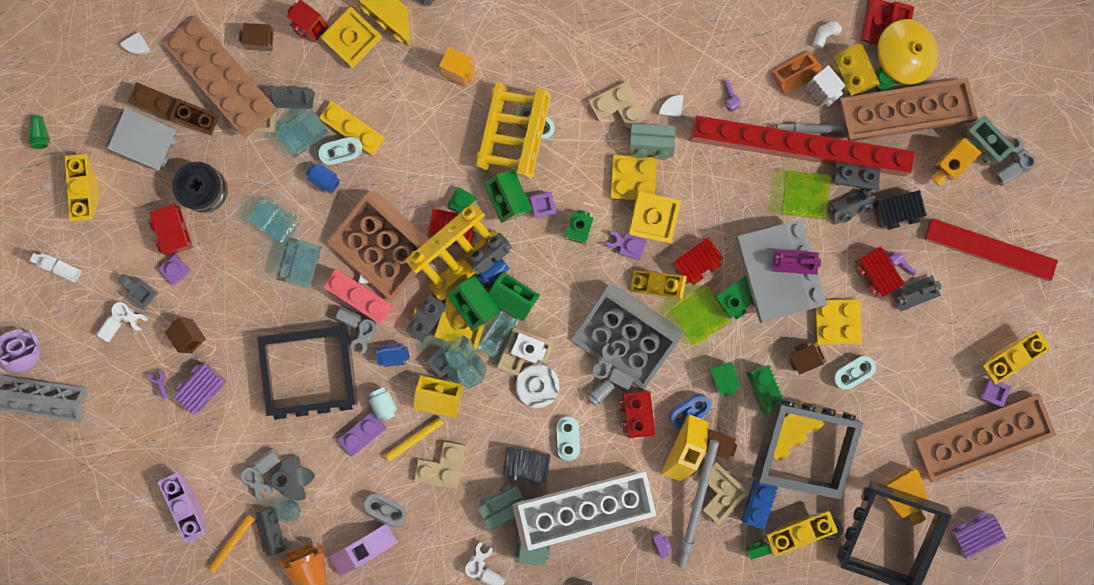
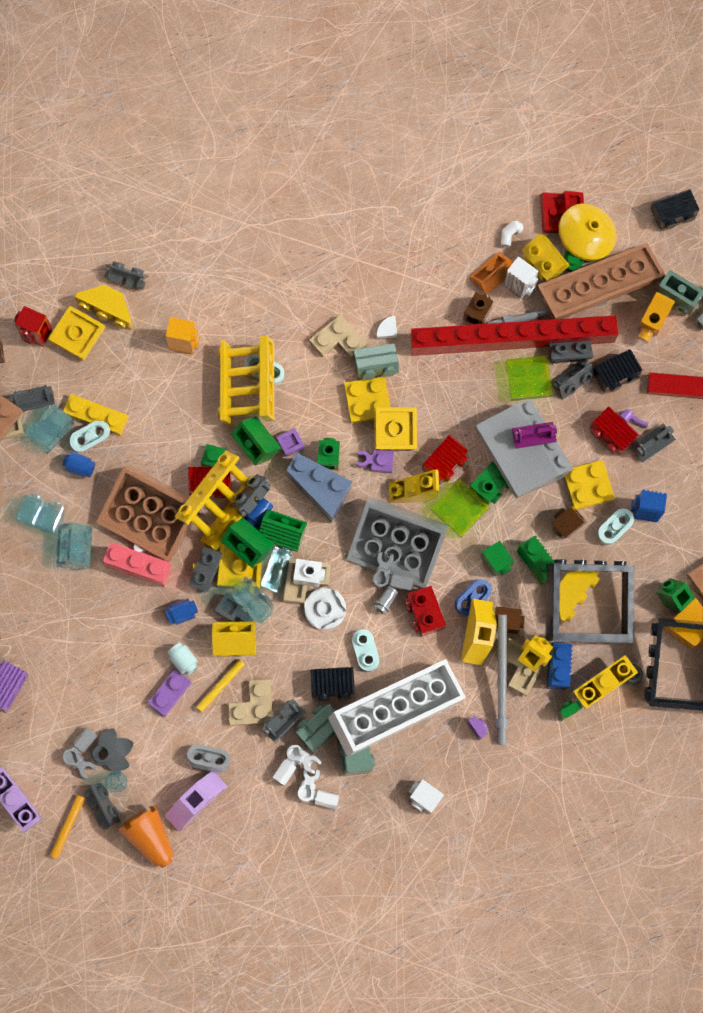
camera: 20 degrees left, 10 degrees down
(323, 407) = (90, 614): black window -> none
(353, 320) = (151, 593): light grey bar -> none
(474, 488) = (290, 714): none -> dark grey hinge
(474, 529) = (295, 755): none -> white bar
(562, 257) = (319, 484): none -> sand blue wedge
(734, 101) = (442, 311): medium lavender hand -> none
(738, 487) = (535, 653): none -> yellow brick
(772, 108) = (478, 308): none -> reddish brown brick
(895, 361) = (648, 505): none -> blue brick
(897, 460) = (675, 594): none -> green brick
(1007, 48) = (675, 209): none -> black brick

